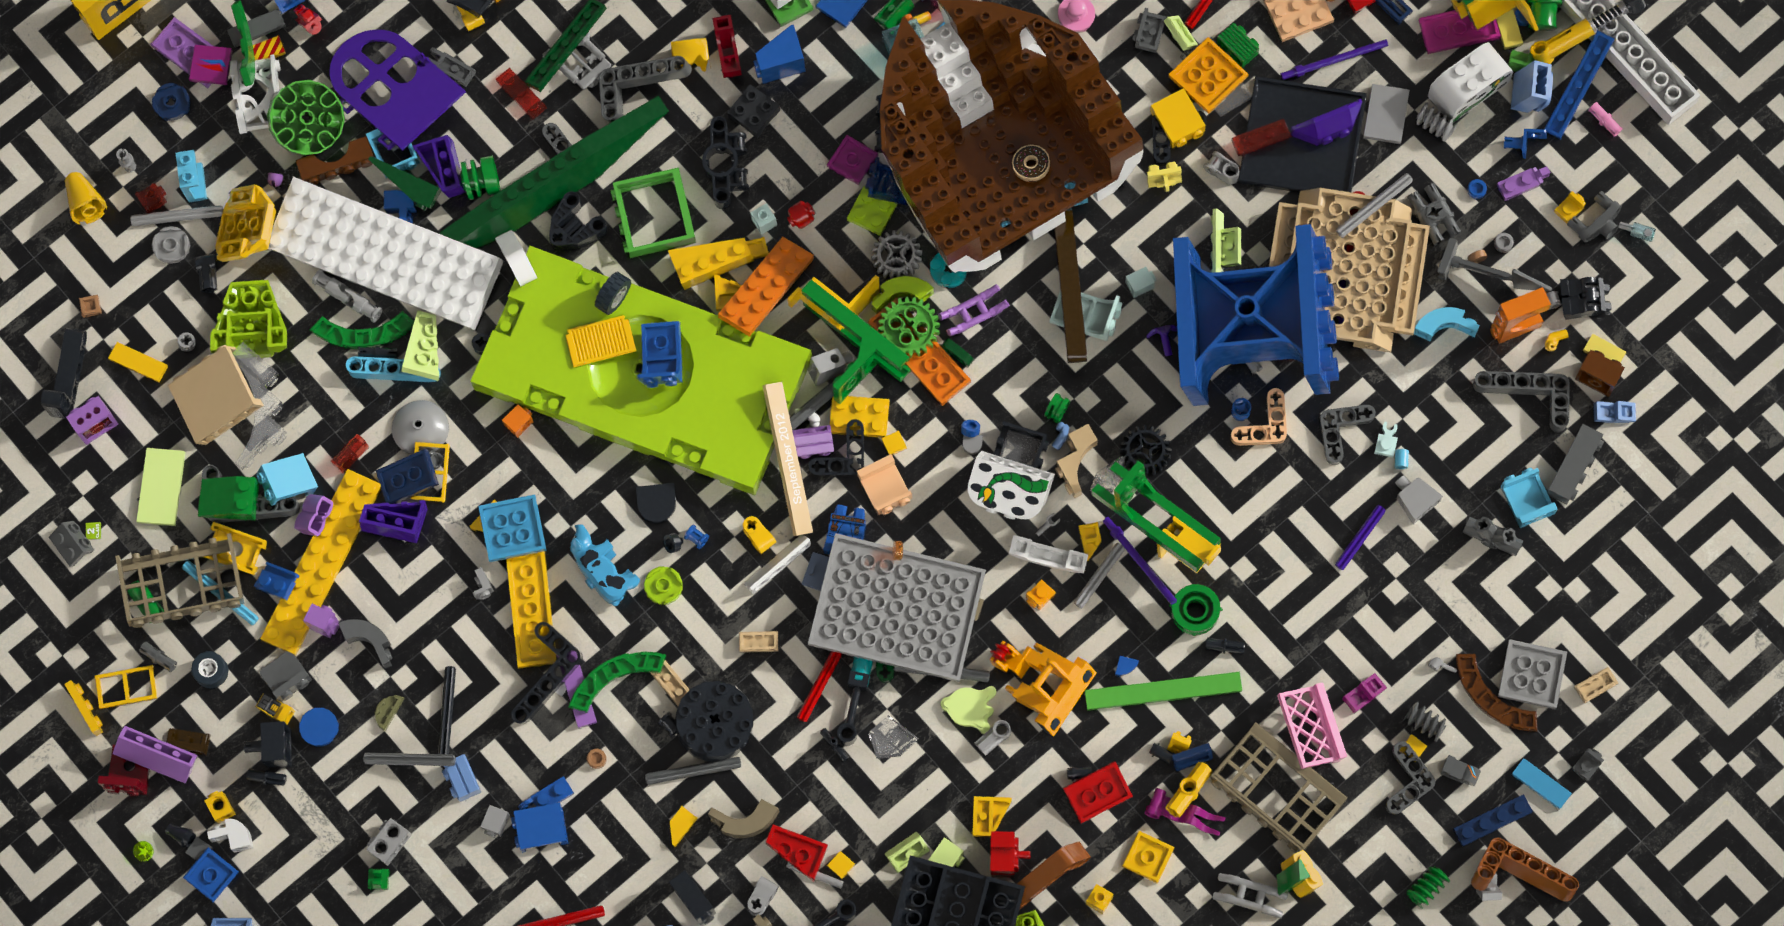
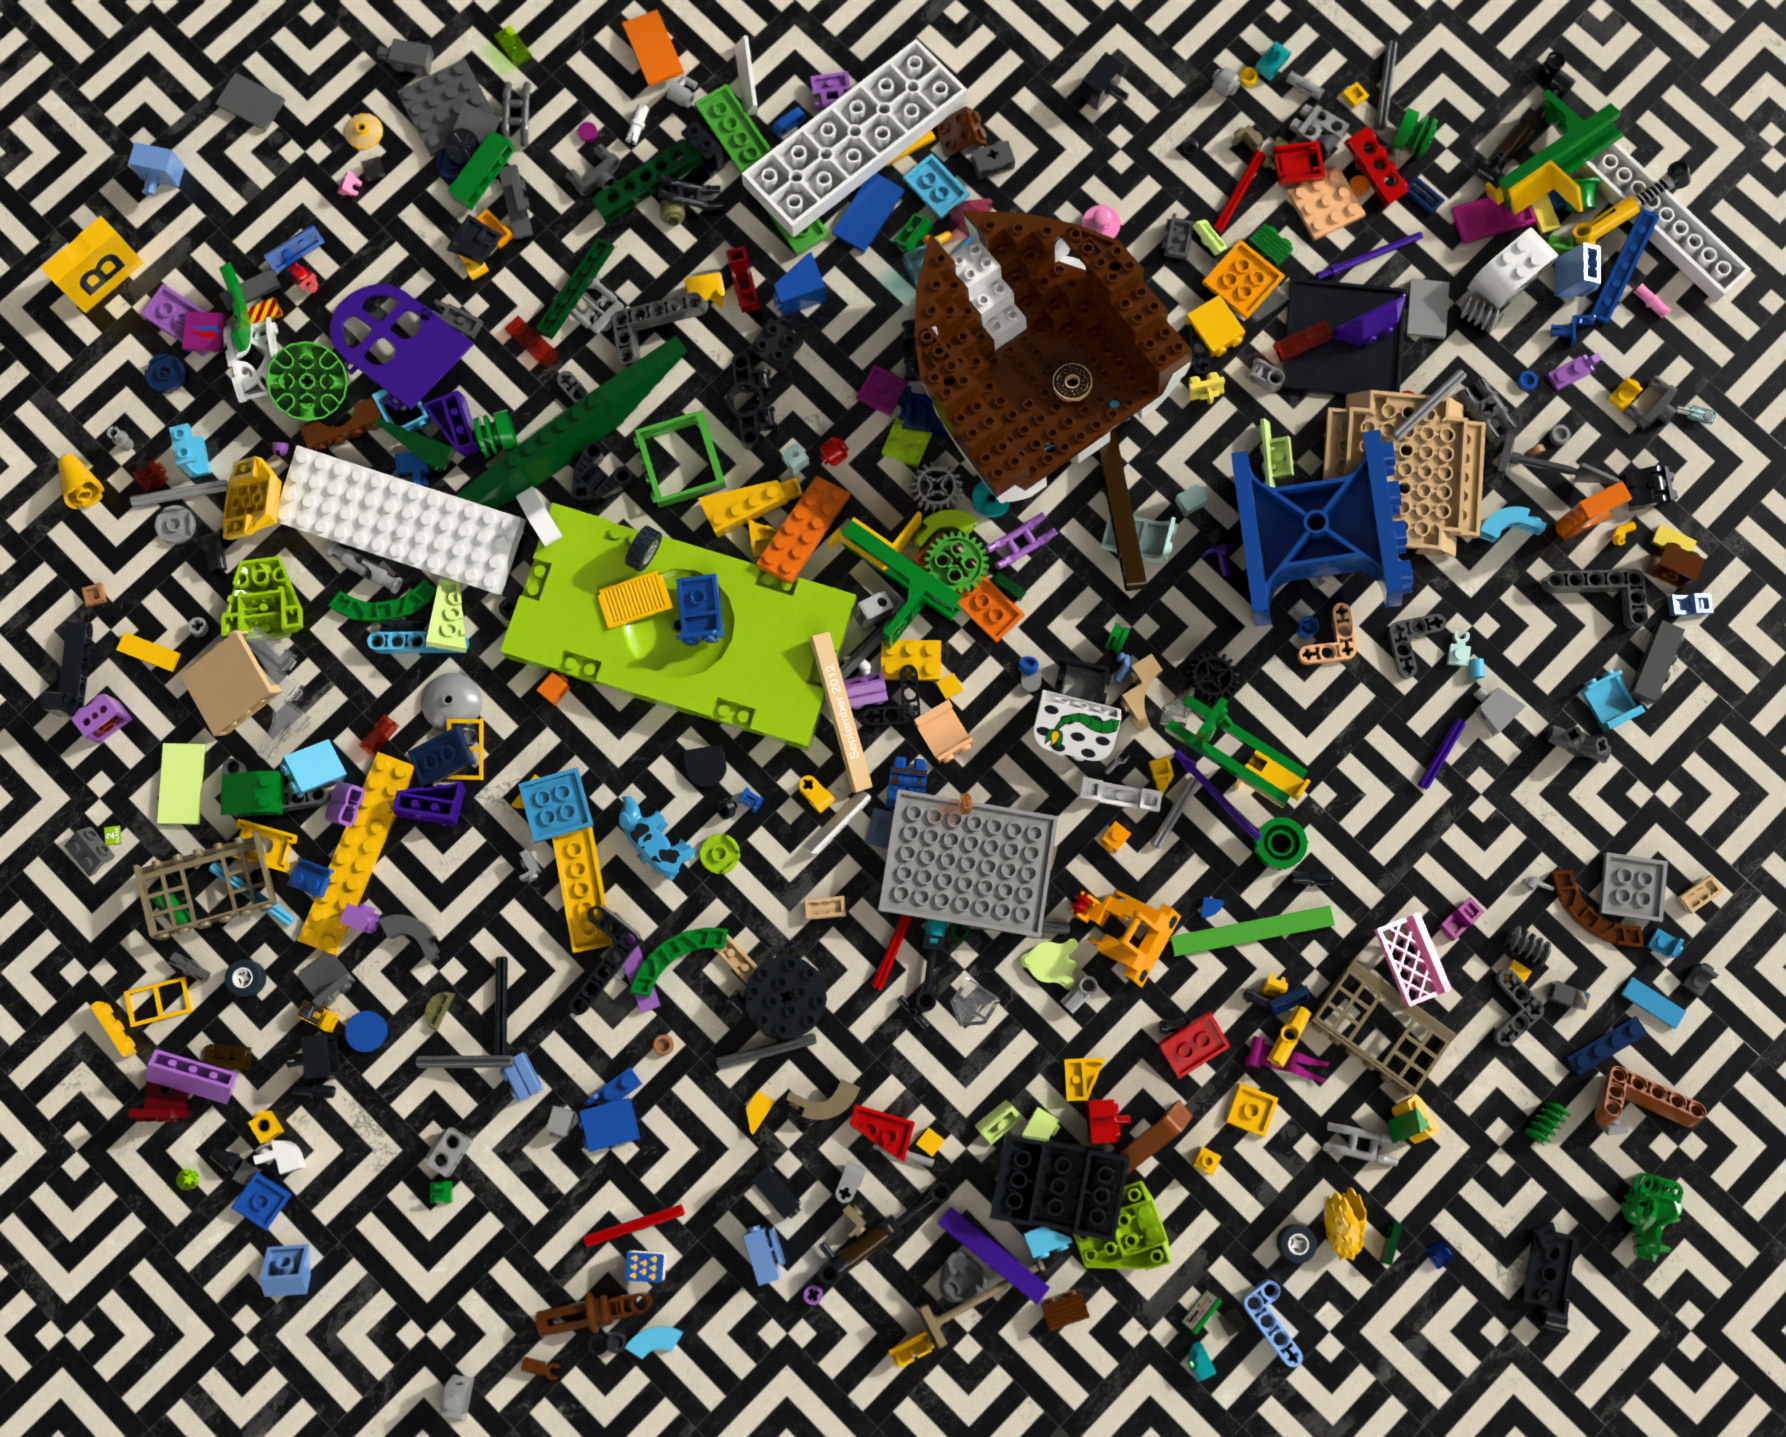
camera: 10 degrees left, 5 degrees up
(1557, 729) = (1665, 944): none -> dark azure bracket

